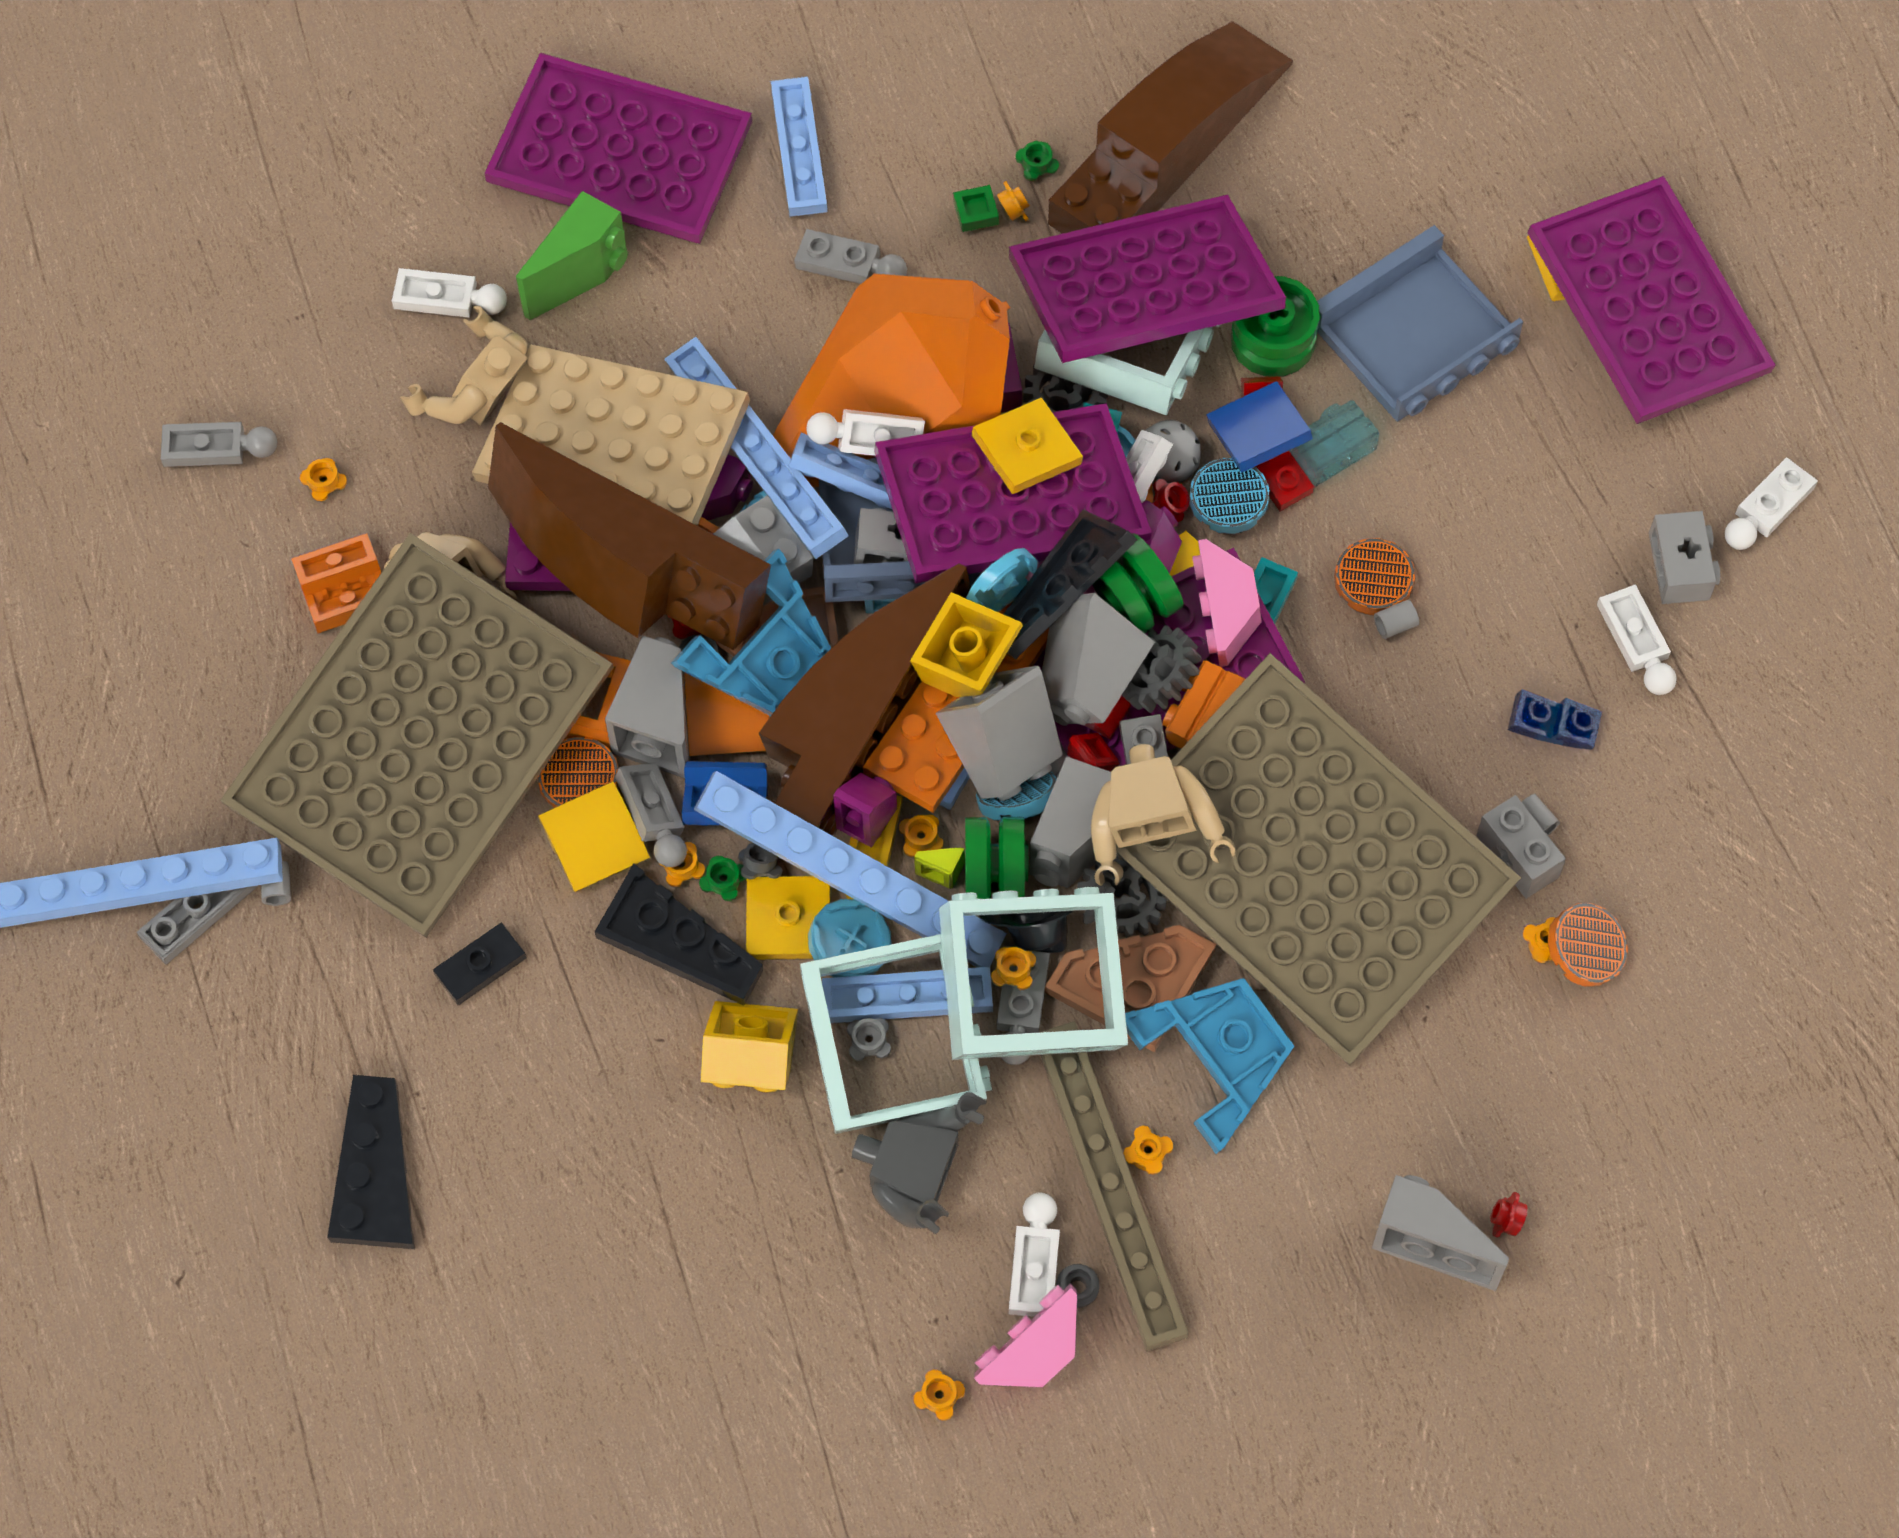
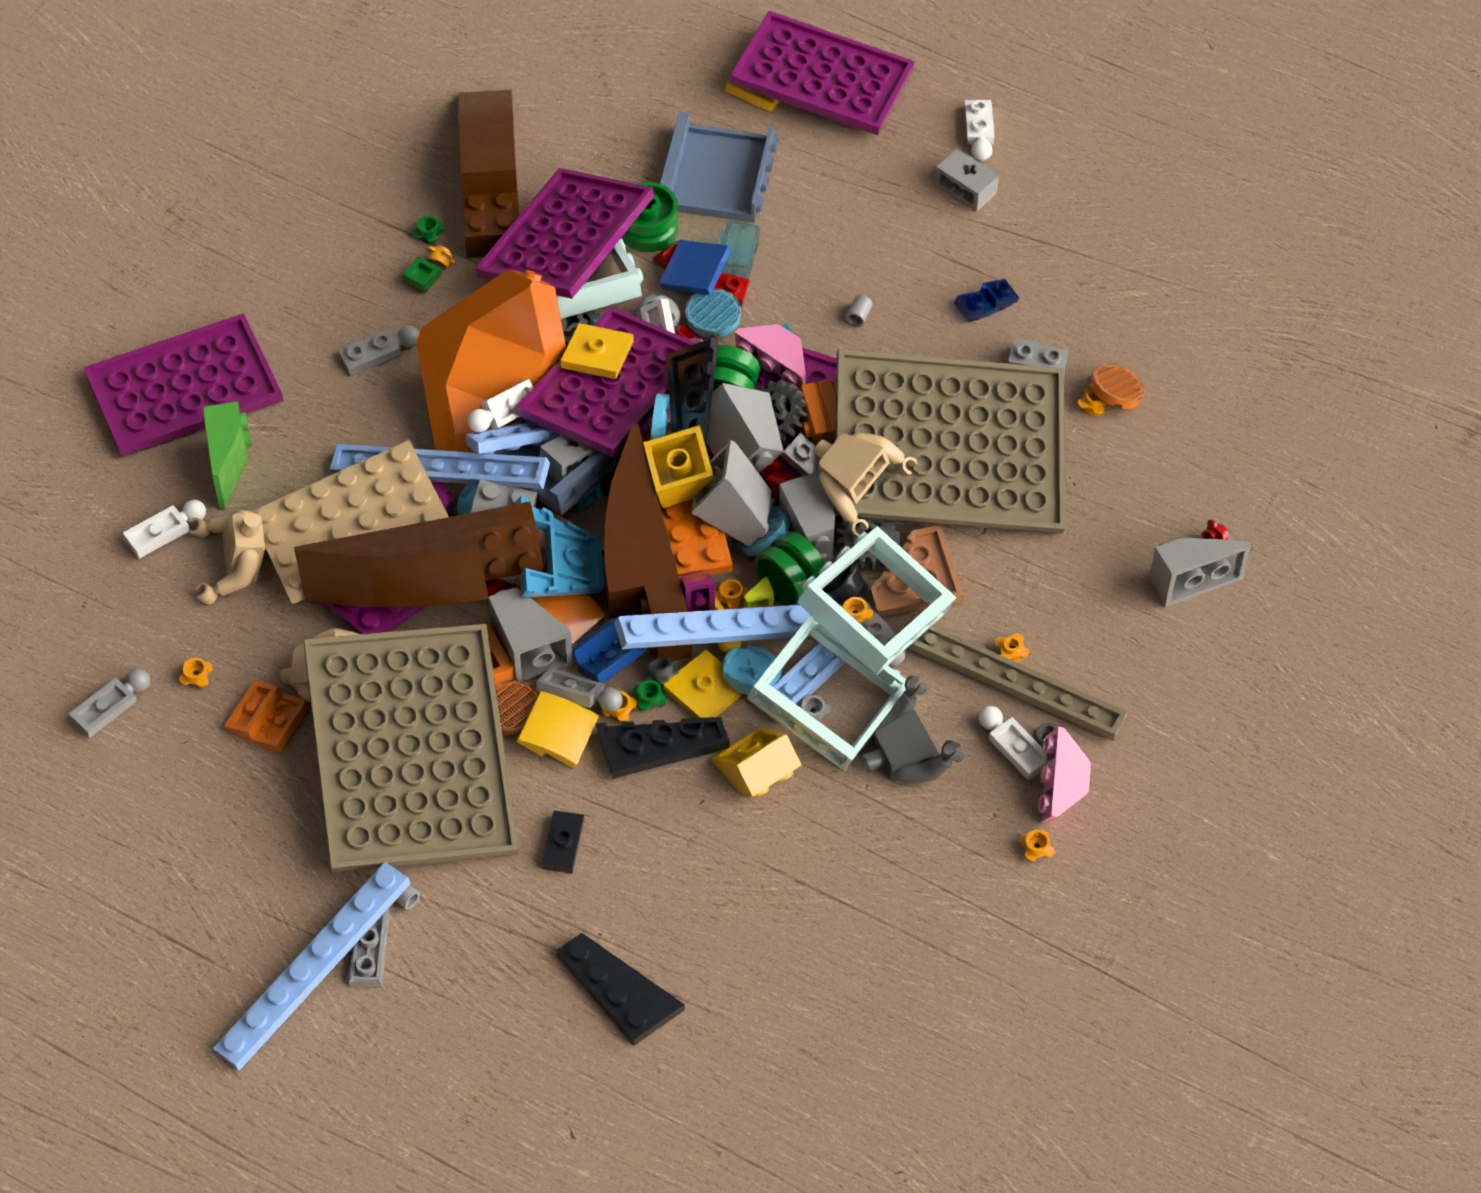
camera: 45 degrees left, 10 degrees down
(798, 146) = (287, 312): light blue plate -> none
(1231, 1038) = (1001, 563): dark azure wing -> none
(1374, 575) = (824, 299): tile -> none
(1638, 638) = (985, 232): white plate -> none

